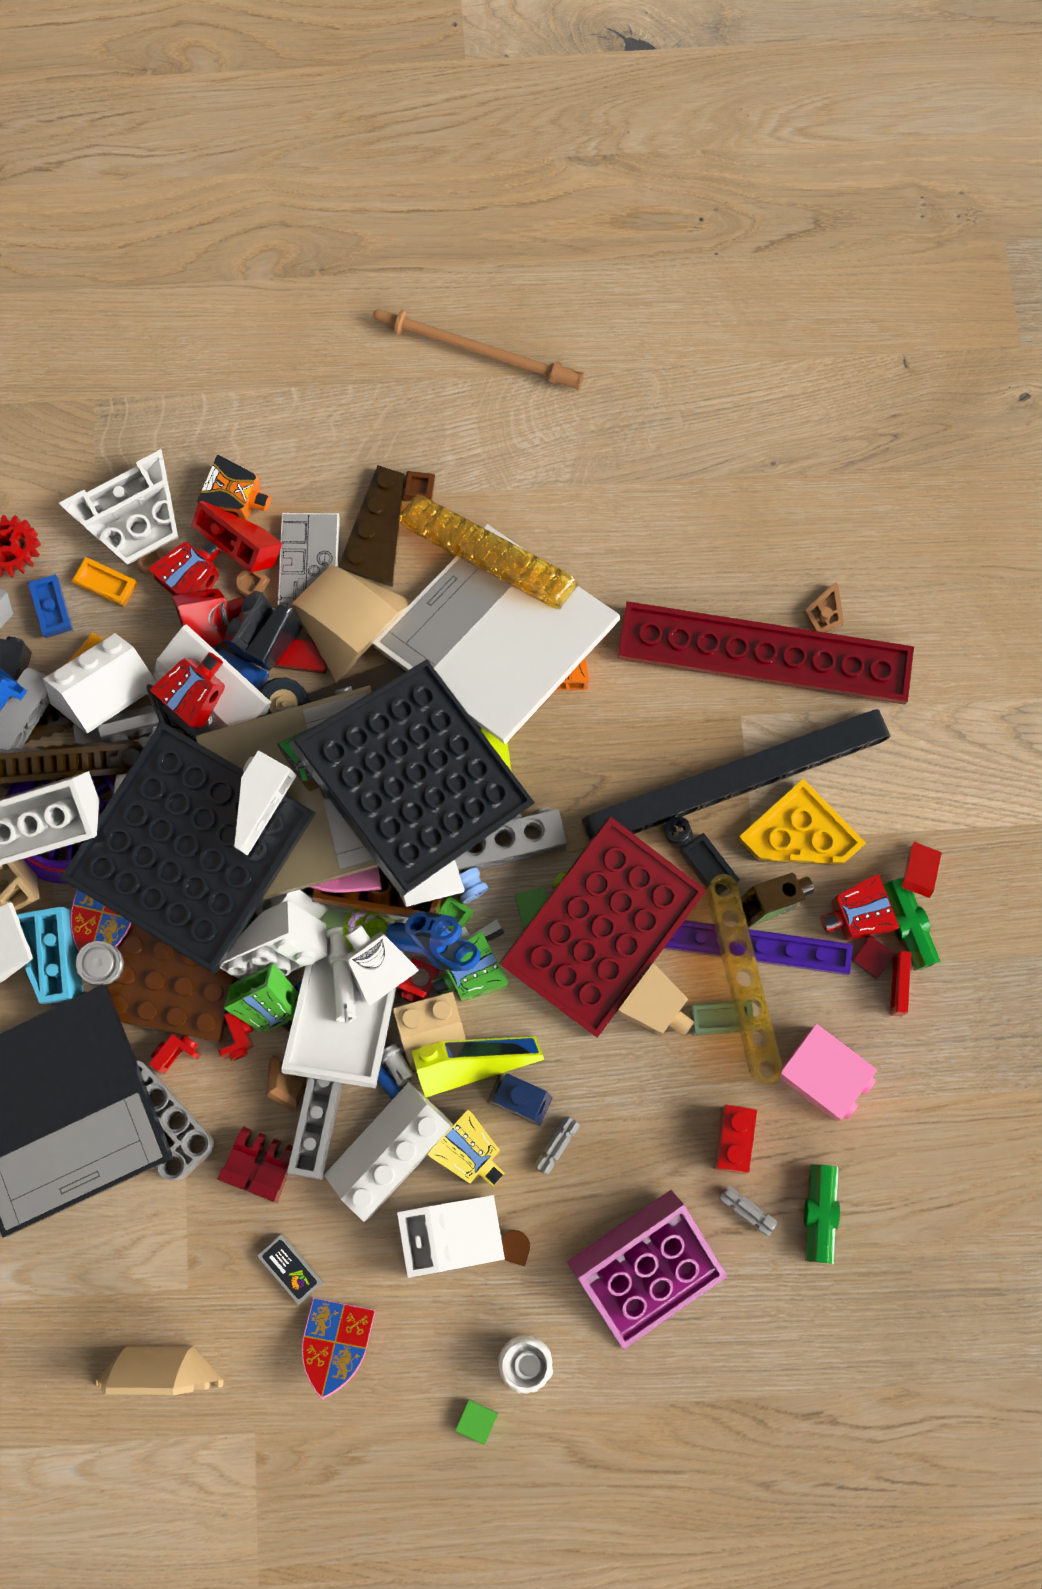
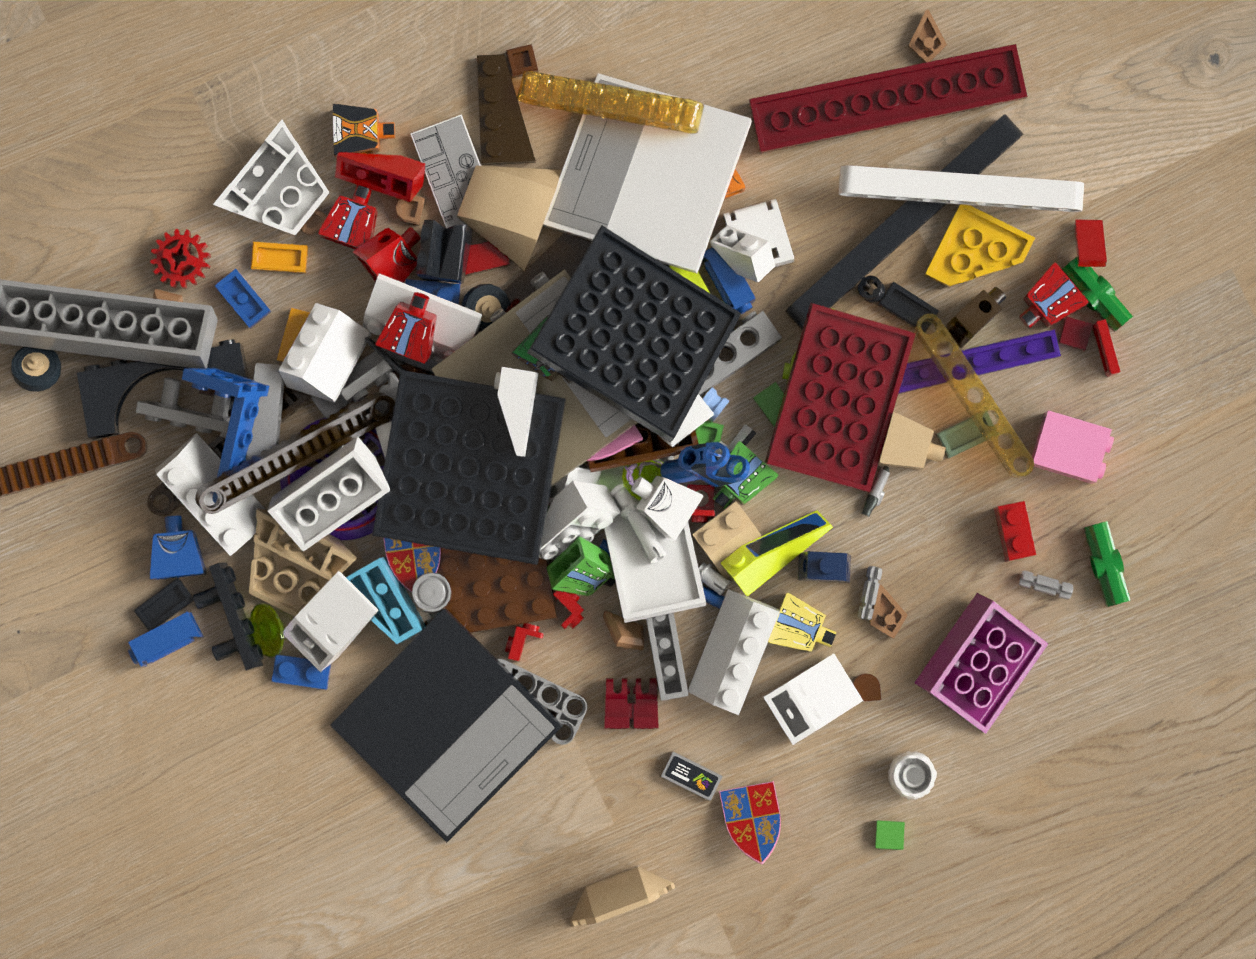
camera: 20 degrees left, 10 degrees up
(536, 765) = (729, 284): none -> blue window
(561, 743) = (744, 252): none -> white slope
(566, 1175) = (887, 614): none -> medium nougat piece
(585, 732) = (766, 225): none -> white container
(604, 1042) = (876, 494): none -> piece
(808, 763) = (961, 188): none -> white beam

